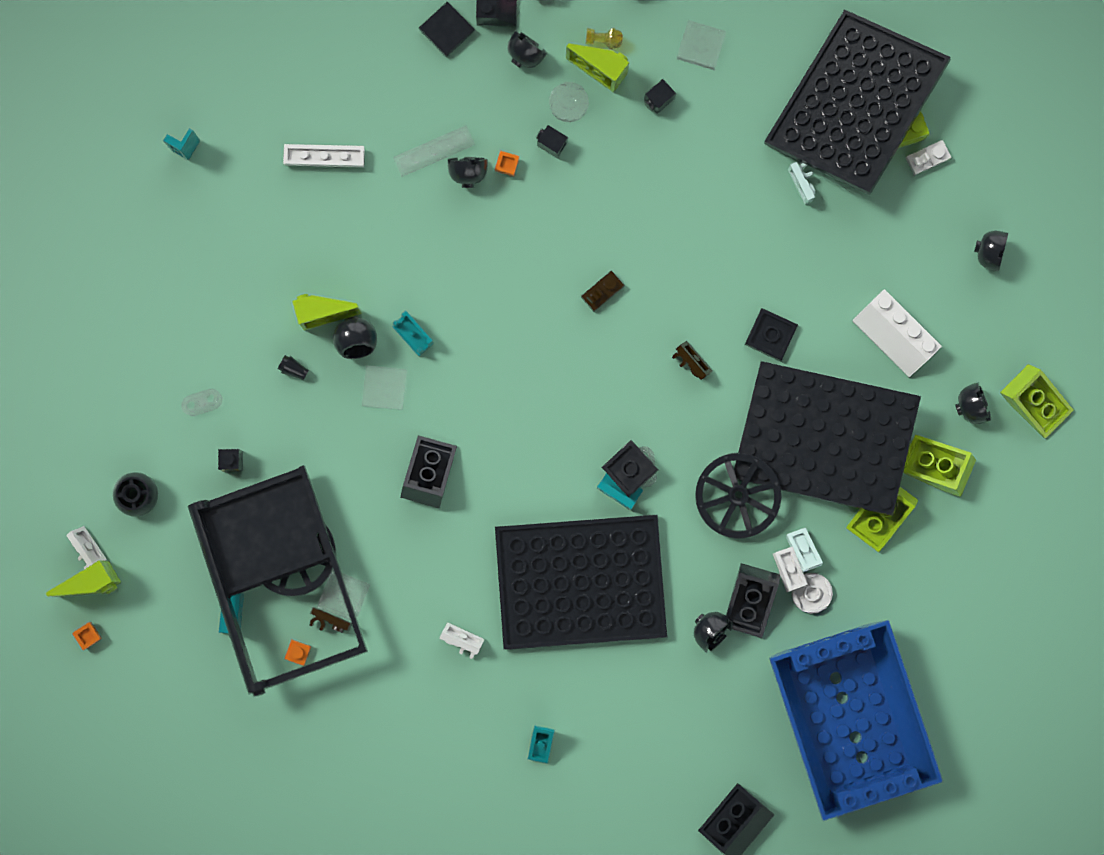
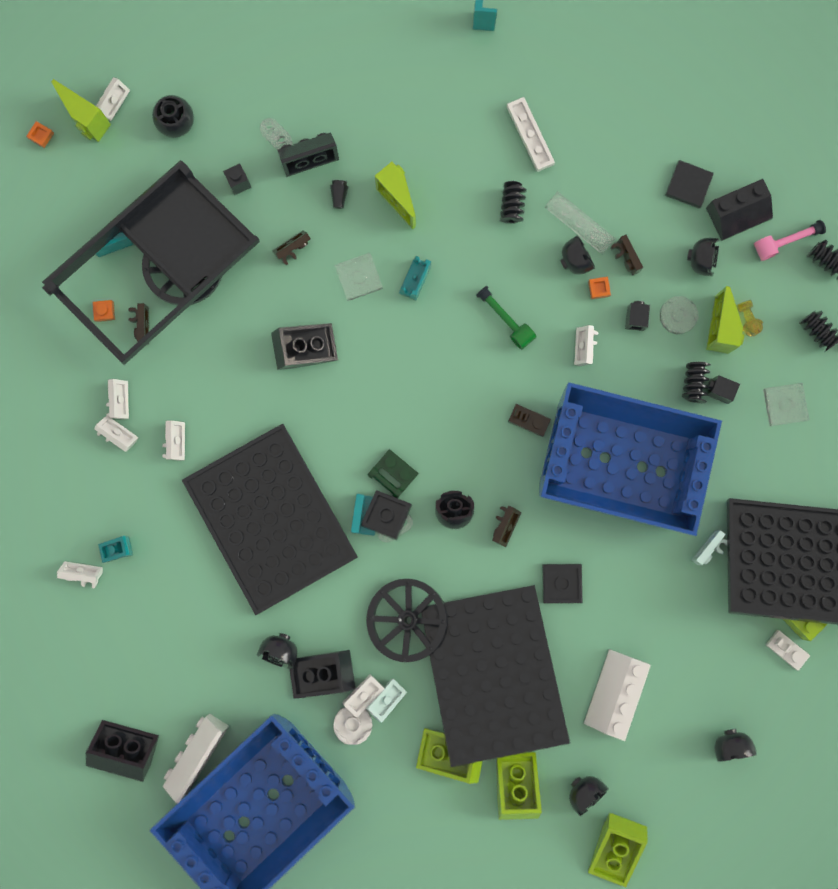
camera: 65 degrees right, 0 degrees up
(238, 378) = (308, 154): none -> black slope
(321, 432) = (298, 241): none -> dark brown plate
(332, 598) = (174, 333): clear tile -> none
(354, 338) = (387, 230): black wheel -> none
(384, 205) = (512, 203): none -> black piece
(393, 675) = (118, 399): none -> white plate
(427, 693) = (116, 433): none -> white plate
(497, 120) = (631, 259): none -> dark brown plate
(518, 259) = (521, 335): none -> green piece
(548, 786) = (80, 572): none -> white plate
(556, 205) = (584, 345): none -> white plate
(589, 438) = (397, 469): none -> dark green plate
(641, 118) = (695, 382): none -> black piece
(655, 401) = (454, 509): none -> black cylinder
(661, 205) = (630, 434): none -> blue slope
(774, 754) = (195, 757): none -> white slope

